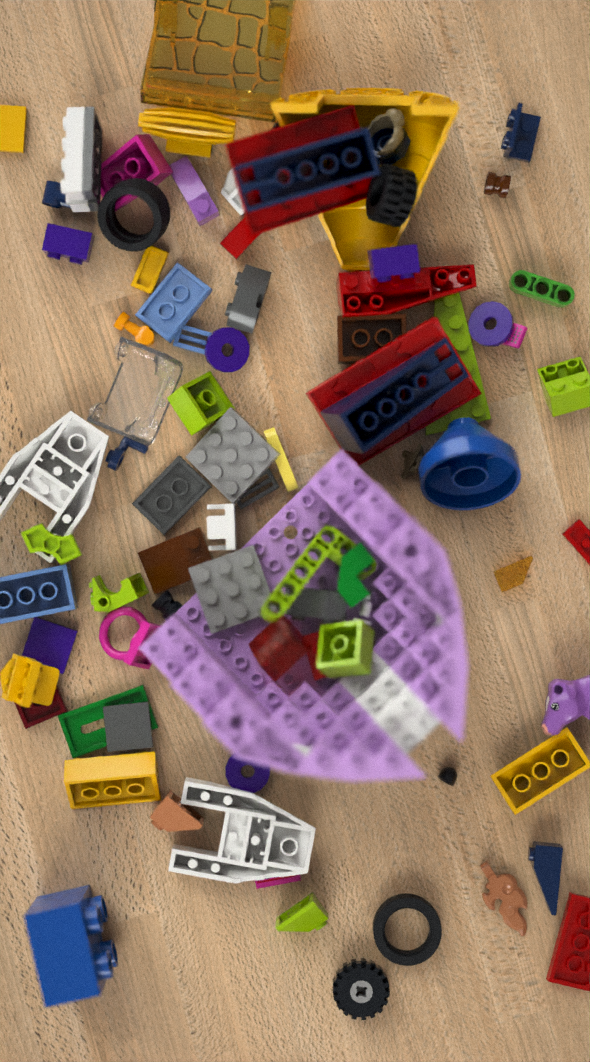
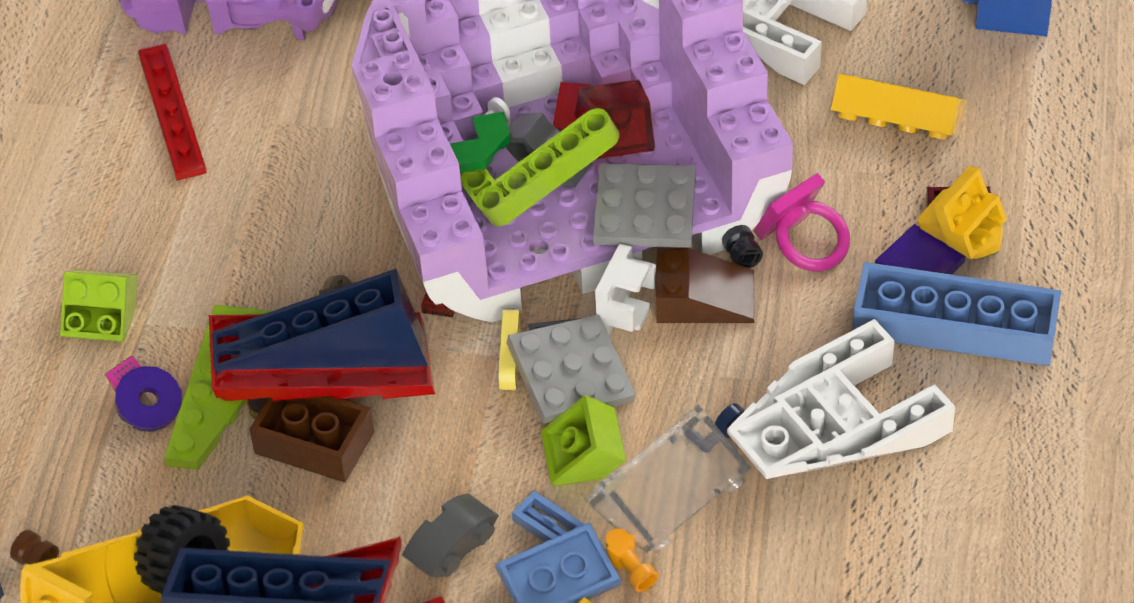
camera: 155 degrees left, 40 degrees down
(61, 547) = (873, 341): lime tile -> none
(73, 721) = (878, 151): green piece -> none
(106, 600) = (800, 266): lime tile -> none
(128, 726) = (853, 144): dark grey tile -> none
(171, 495) = (676, 365): dark grey tile -> none
(175, 816) = (840, 37): nougat slope -> none
(214, 353) = (521, 477): dark purple tile -> none
(345, 649) = (534, 79): lime brick -> none
(366, 296) = (269, 467): red wedge -> none
(393, 261) = (227, 479): dark purple brick -> none
(469, 468) = (270, 247): blue cone -> none
(512, 574) = (289, 151): clear yellow tile -> none
(552, 286) = (58, 416): bright green beam -> none

